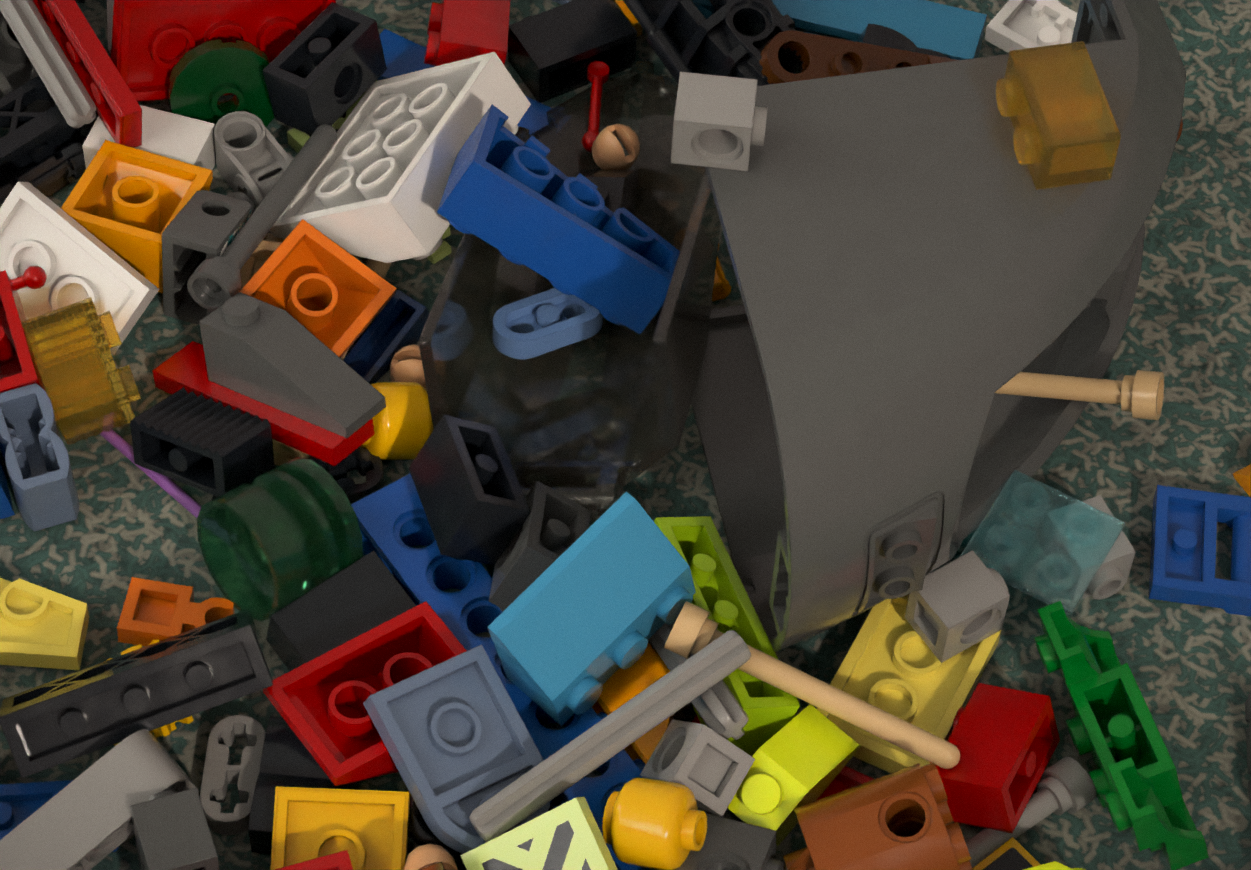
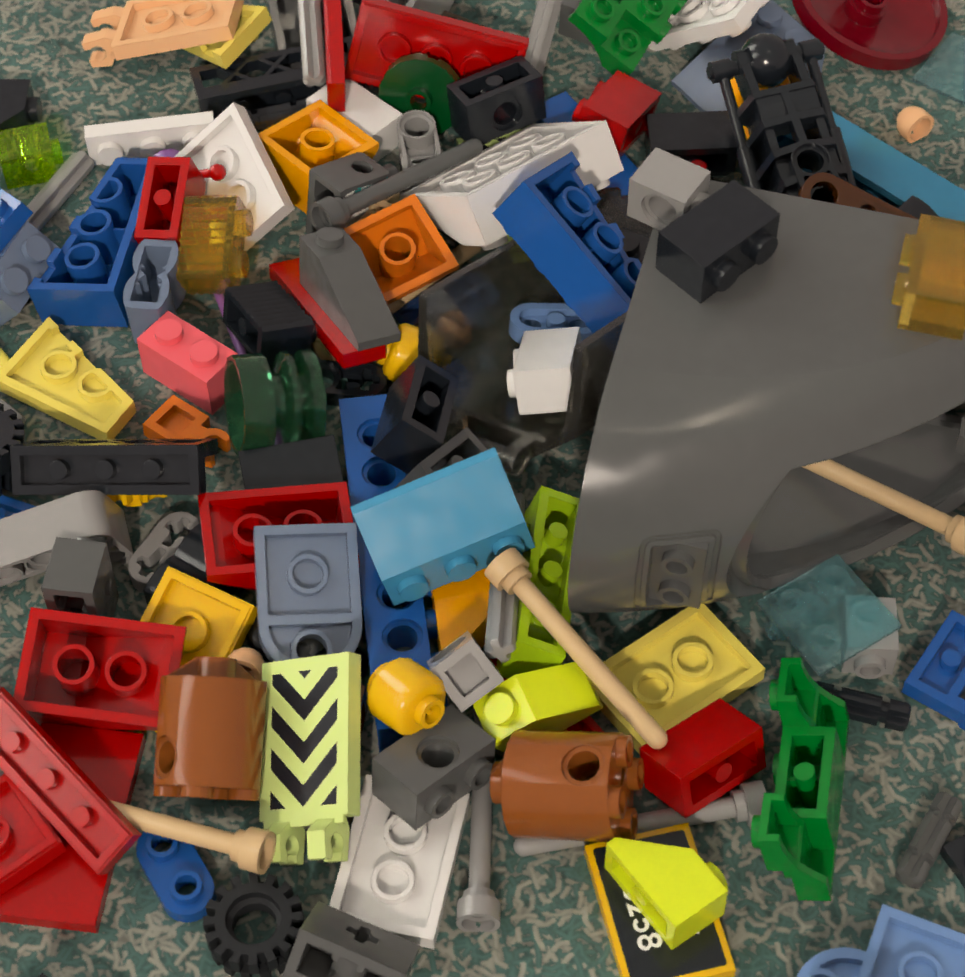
camera: 30 degrees right, 0 degrees up
(129, 529) = (185, 360): none -> coral brick
(580, 379) = (543, 370): none -> white brick
(610, 736) = (411, 620): light grey axle -> none
(802, 159) = (717, 241): none -> black brick
(958, 606) = (735, 635): light grey brick -> none
(1133, 629) = (871, 709): none -> black axle

